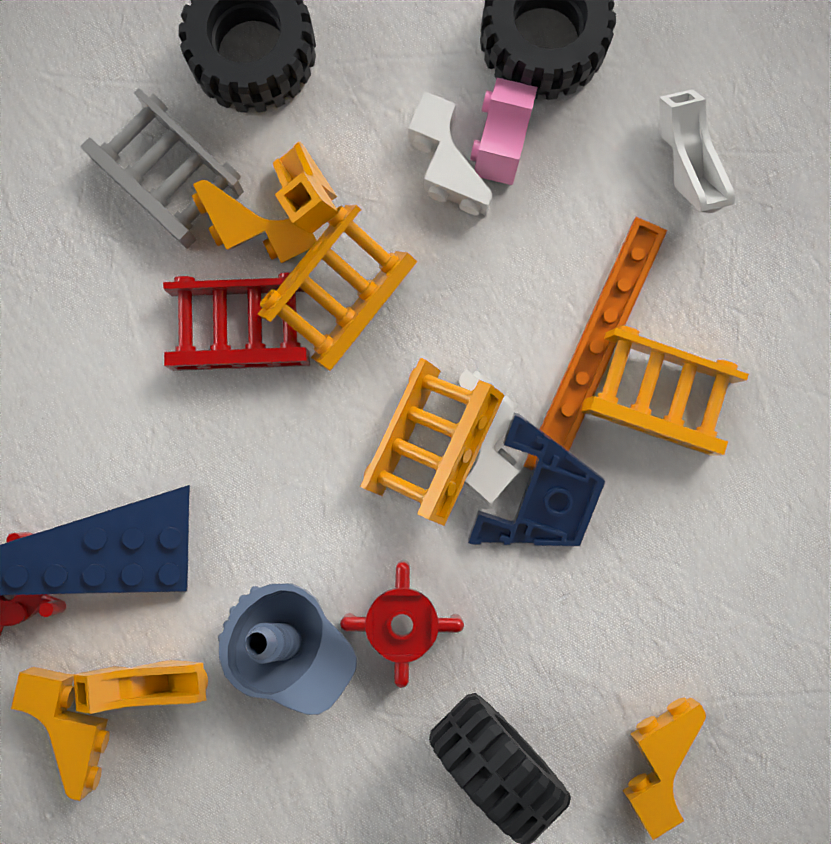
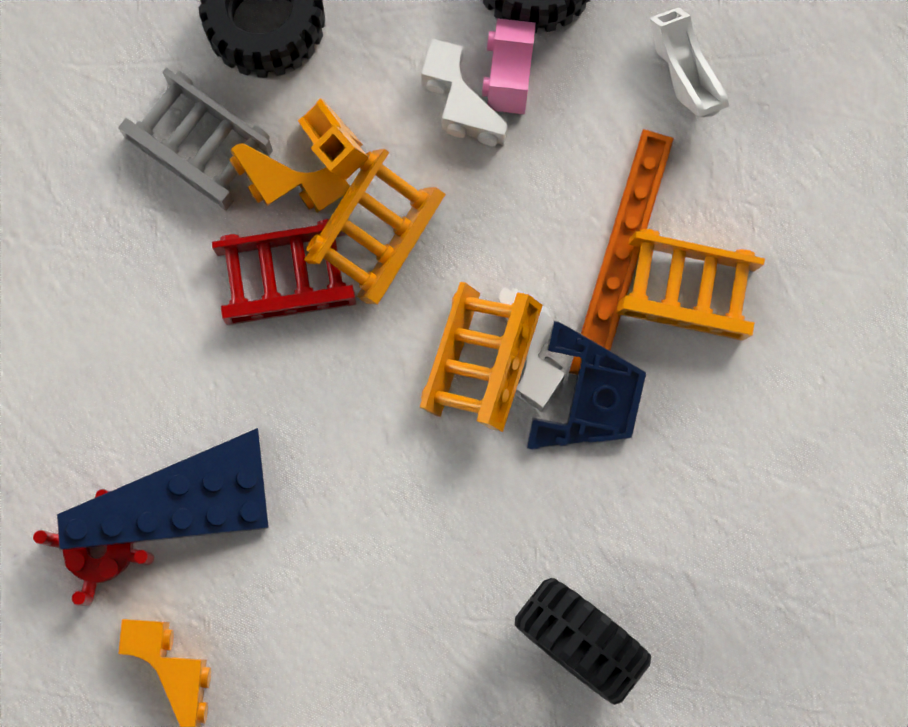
camera: 10 degrees left, 5 degrees down
(141, 685) = (237, 617): light orange arch -> none
(285, 649) = (370, 563): sand blue piece -> none
(397, 647) = (475, 549): red plate -> none
(664, 746) = (733, 614): light orange arch -> none

